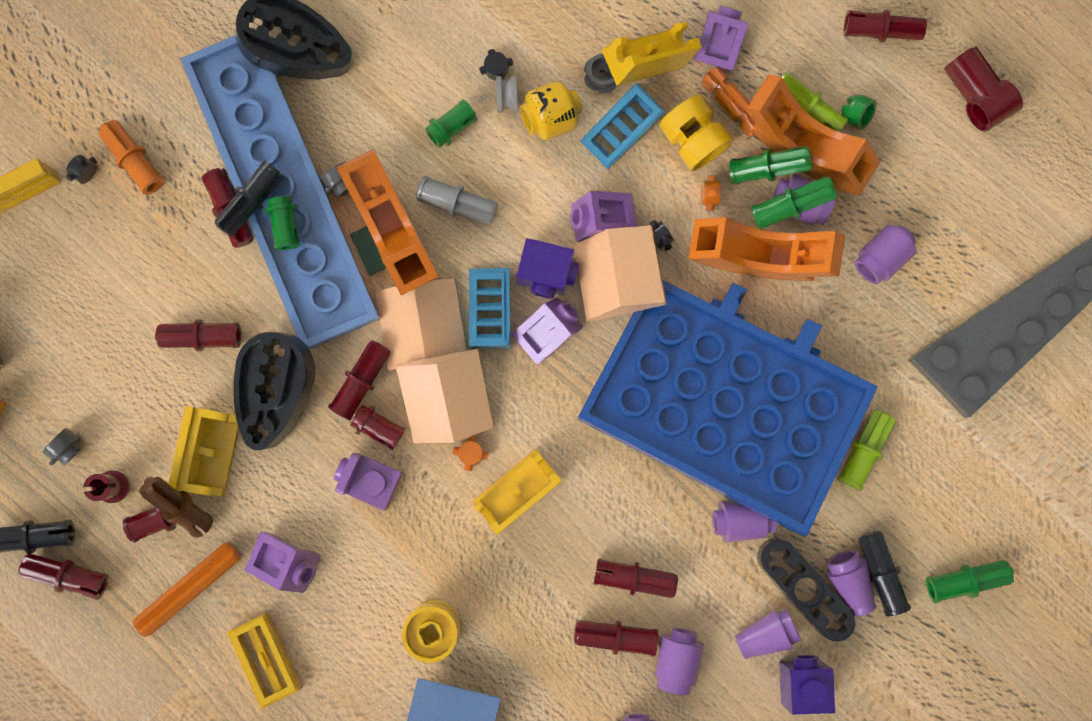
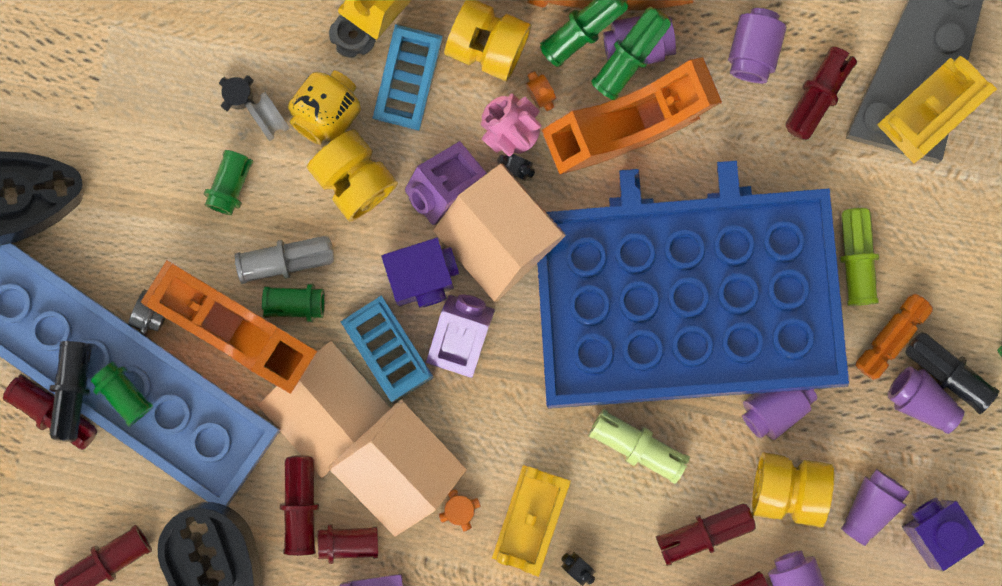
camera: 25 degrees left, 0 degrees up
(368, 250) = (223, 366): dark green piece -> none
(444, 235) = (293, 302): none -> green pin
(528, 546) = (578, 568): none -> black piece
(540, 165) = (355, 179): none -> yellow wheel
(626, 487) = (639, 446): none -> yellowish green pin
(675, 203) = (510, 124): none -> bright pink gear
(723, 591) = (798, 490): none -> yellow wheel
(834, 604) = (922, 435): black beam -> none
(858, 522) = (894, 336): none -> orange axle
(911, 315) = (820, 93): none -> dark red axle
(992, 376) = (936, 108): none -> yellow hinge

